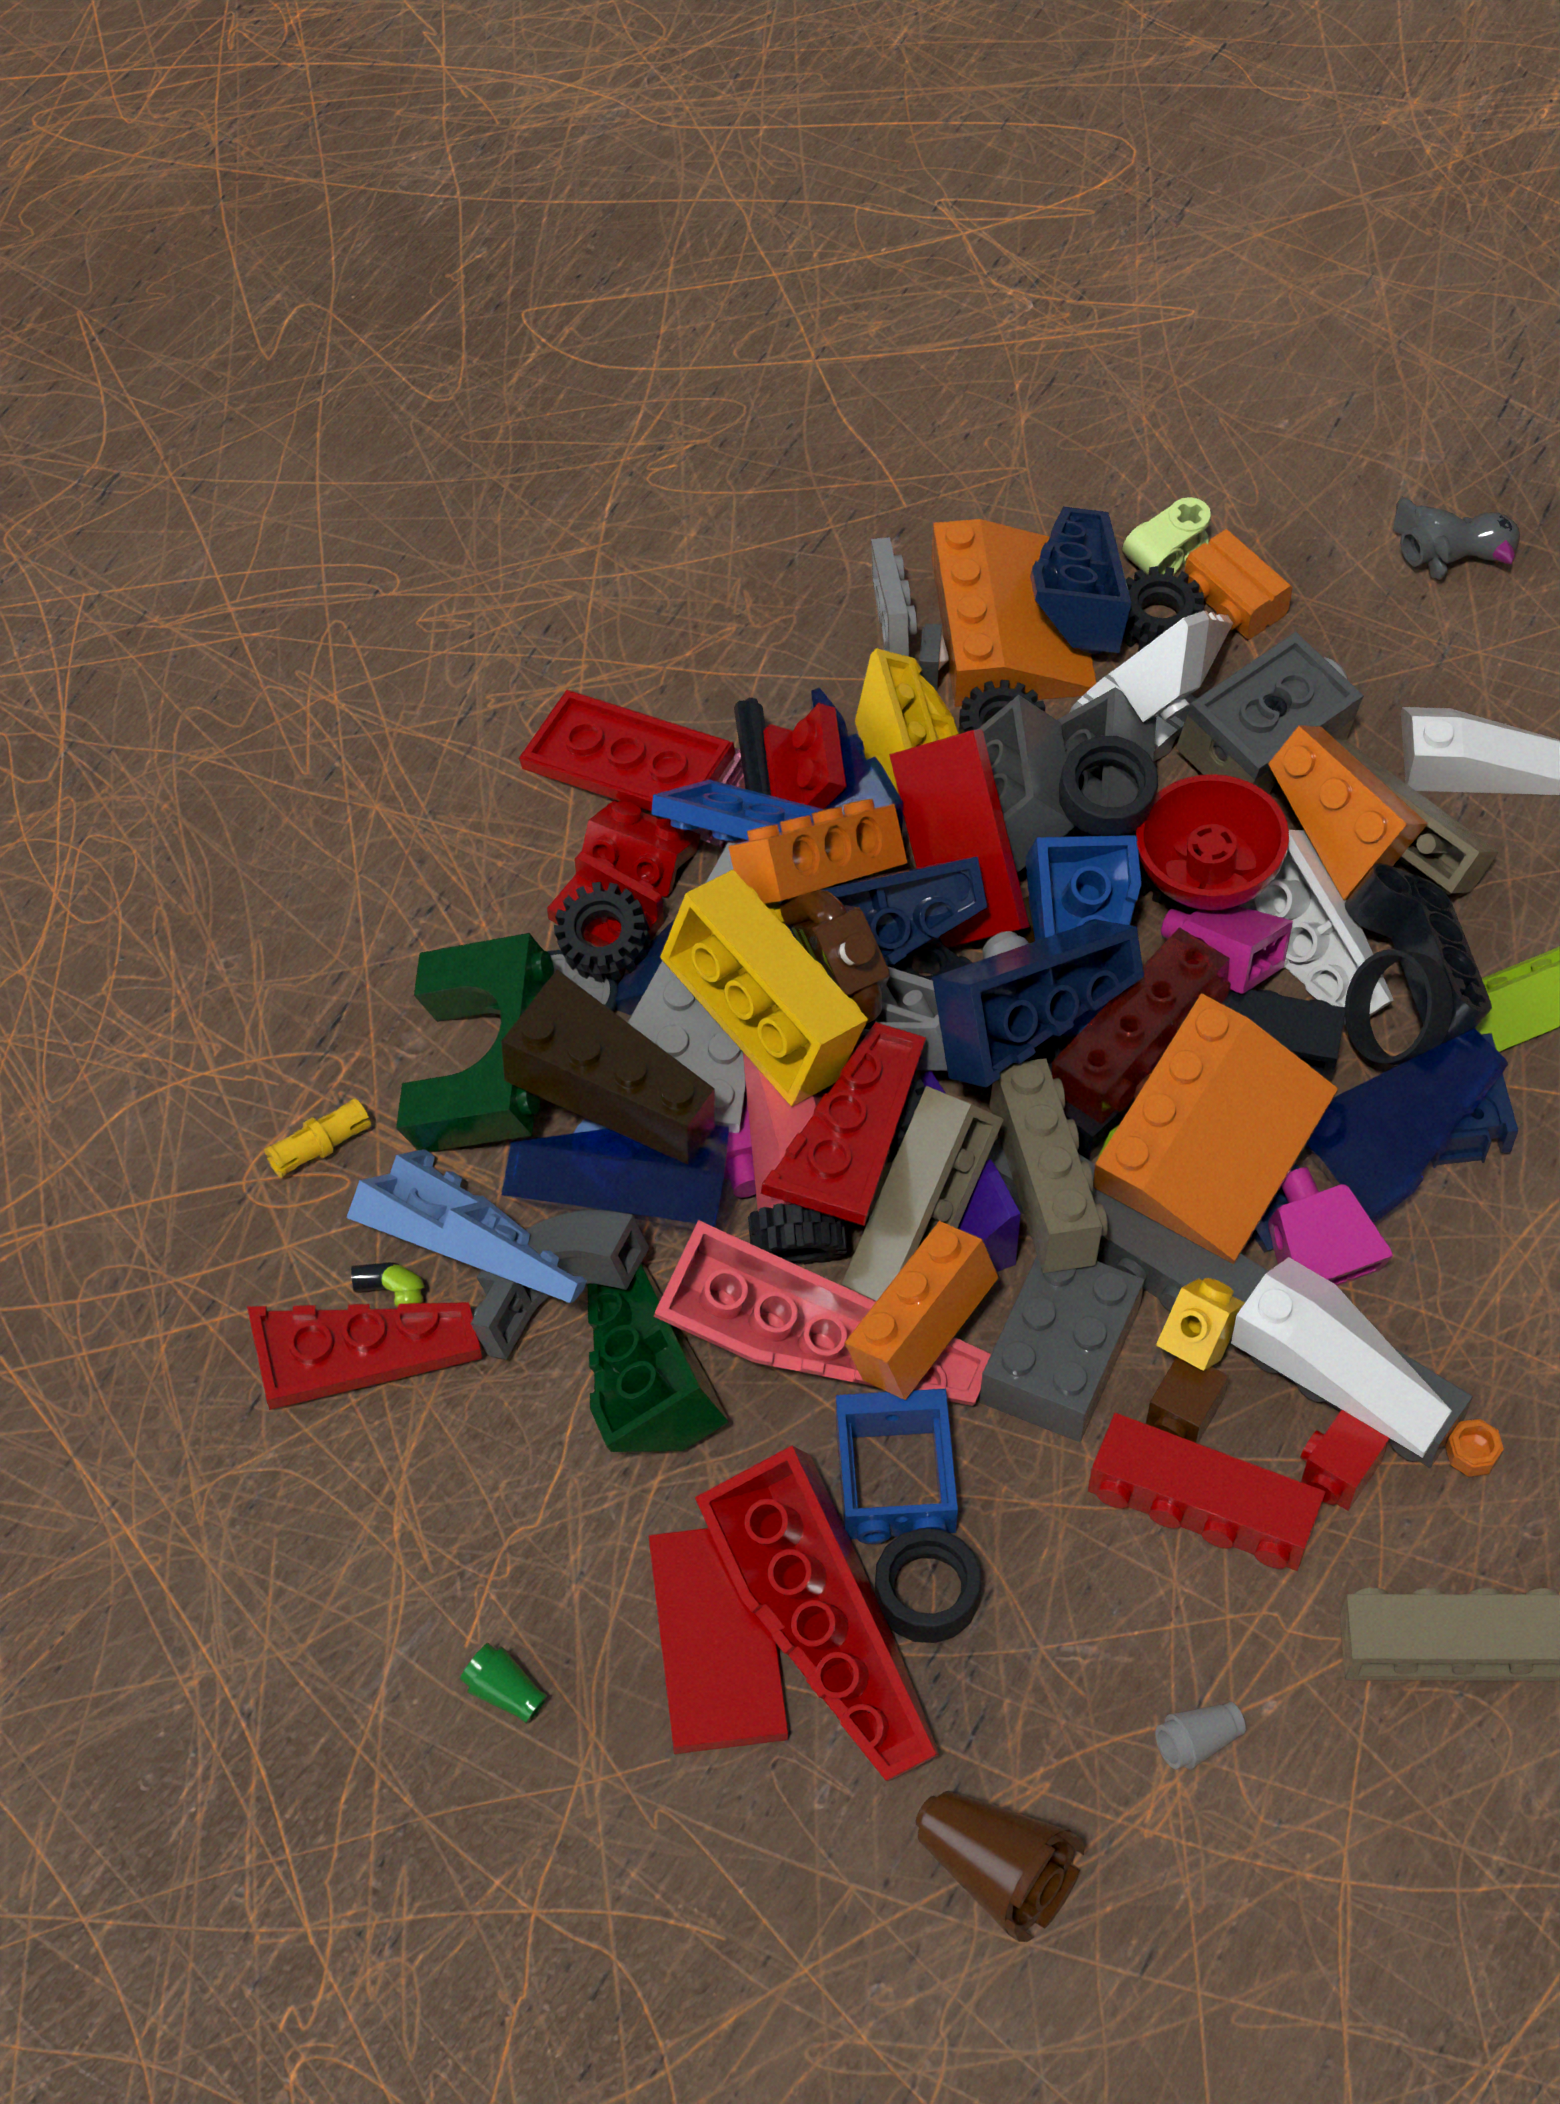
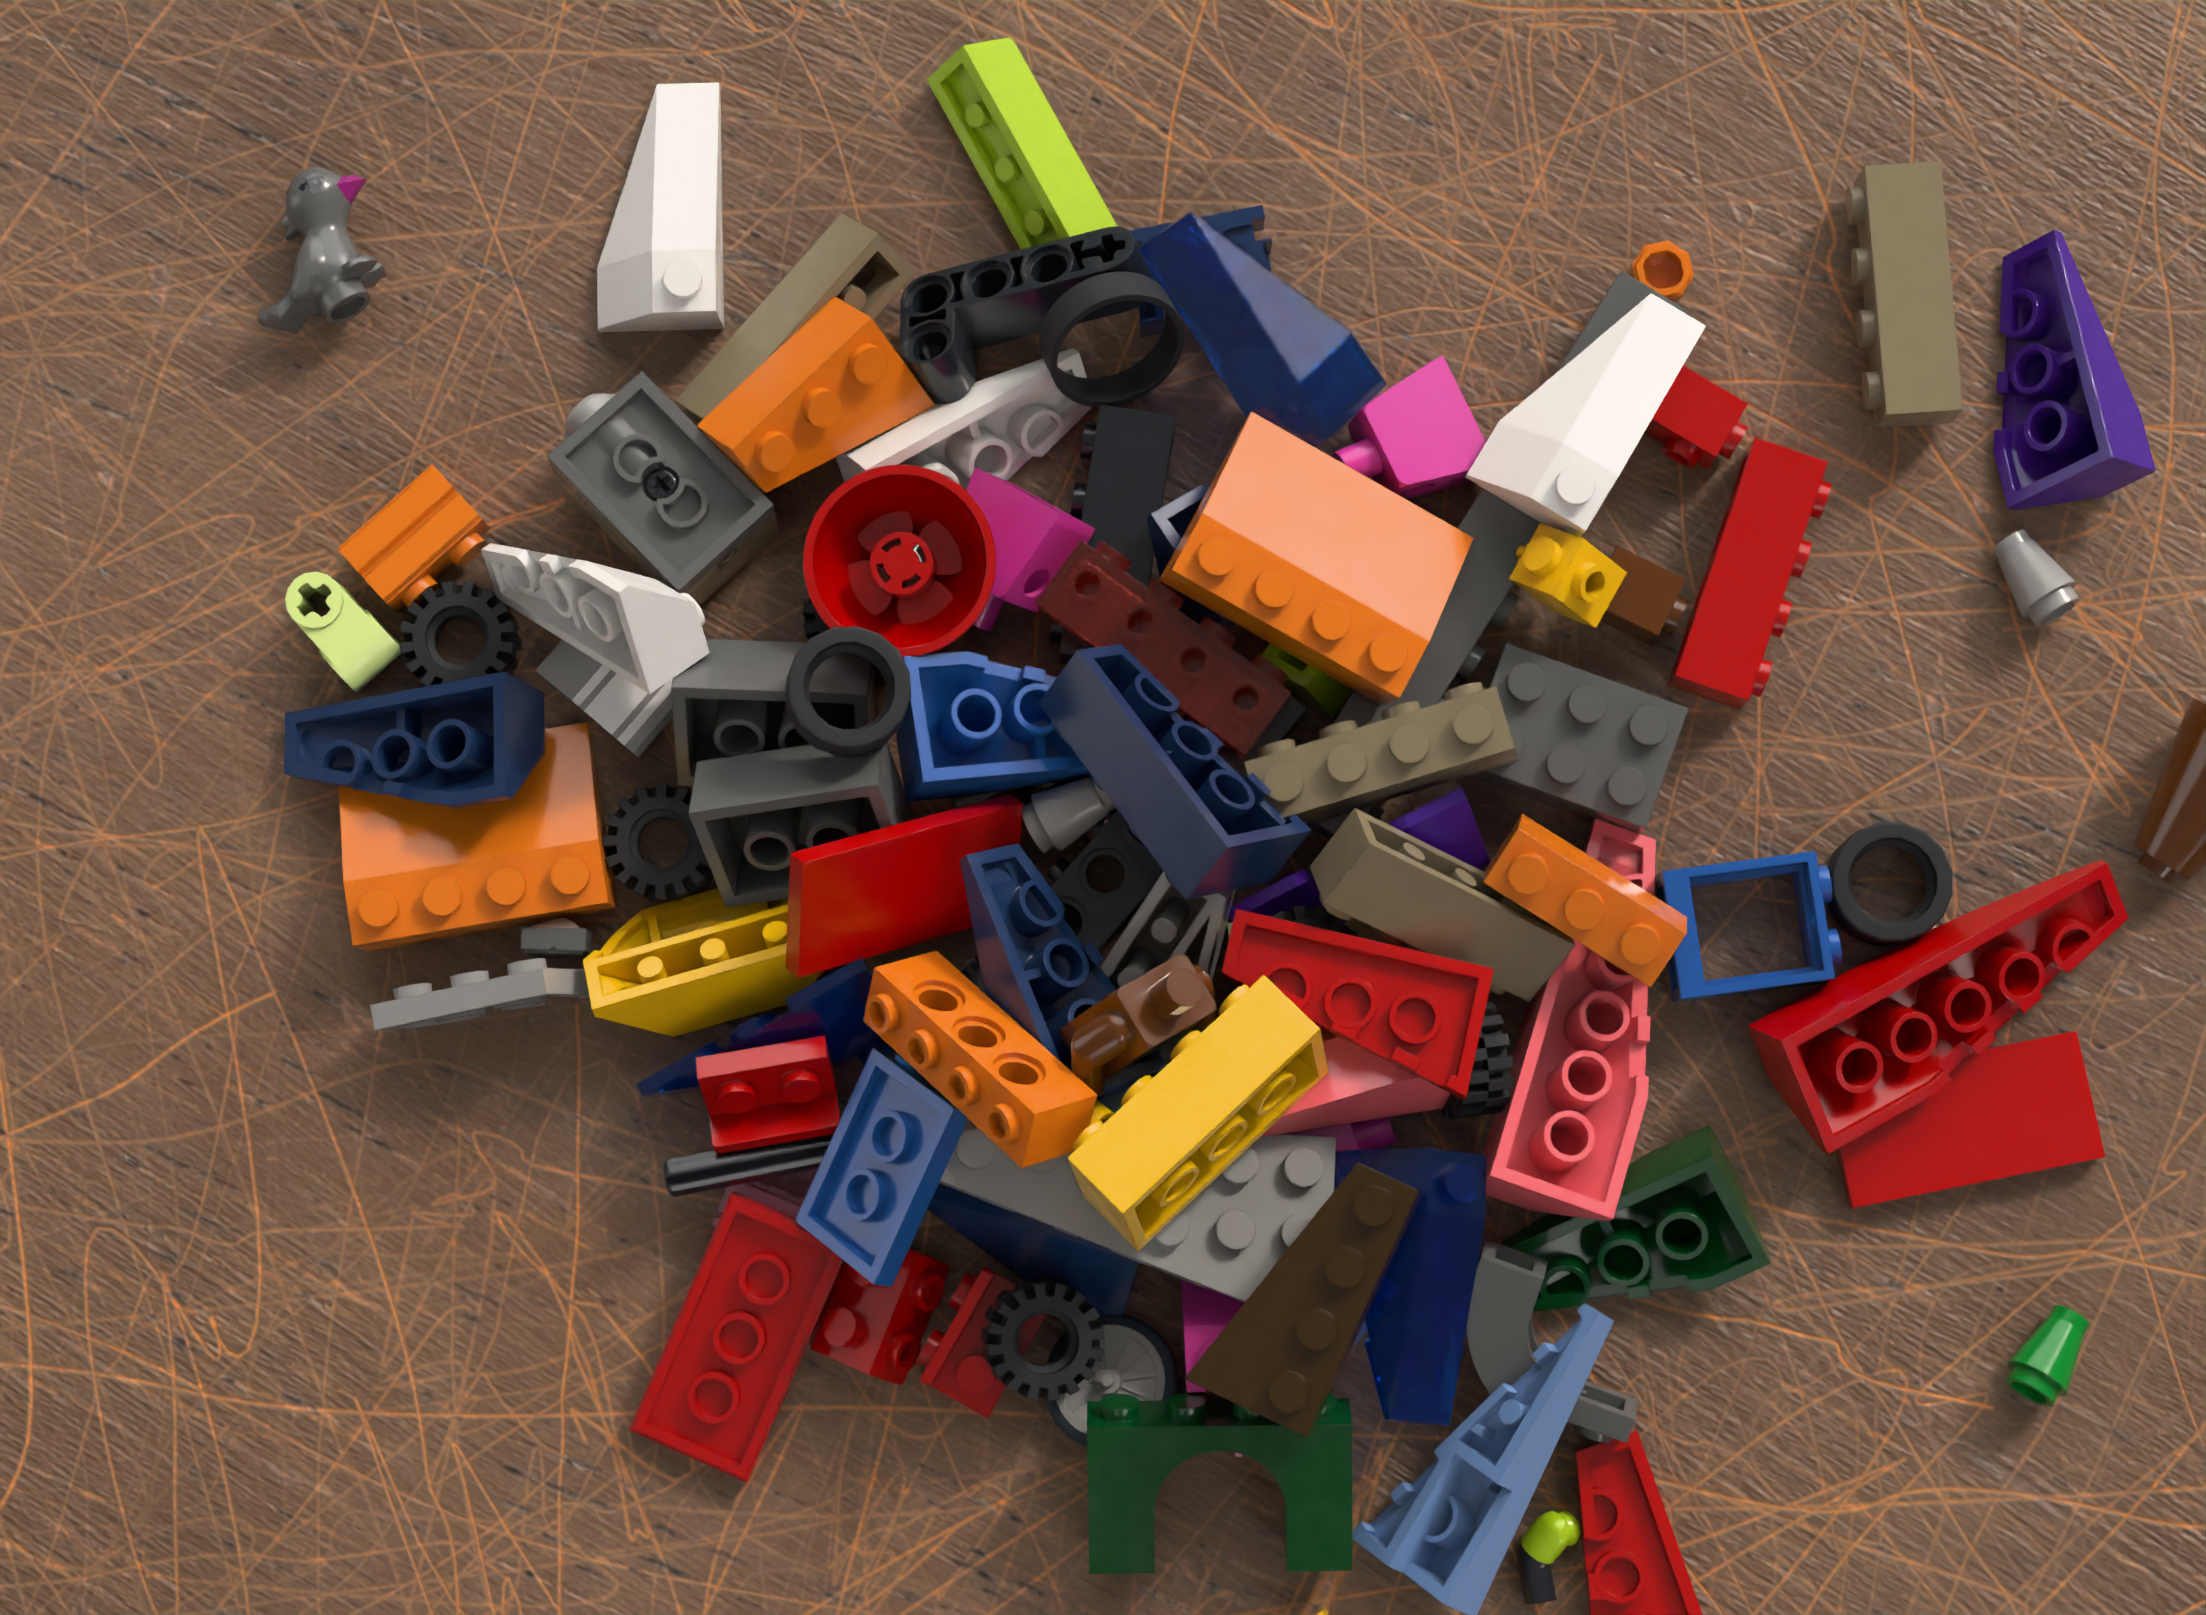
camera: 90 degrees left, 25 degrees up
(1357, 1780) = (2065, 400): none -> dark purple wedge

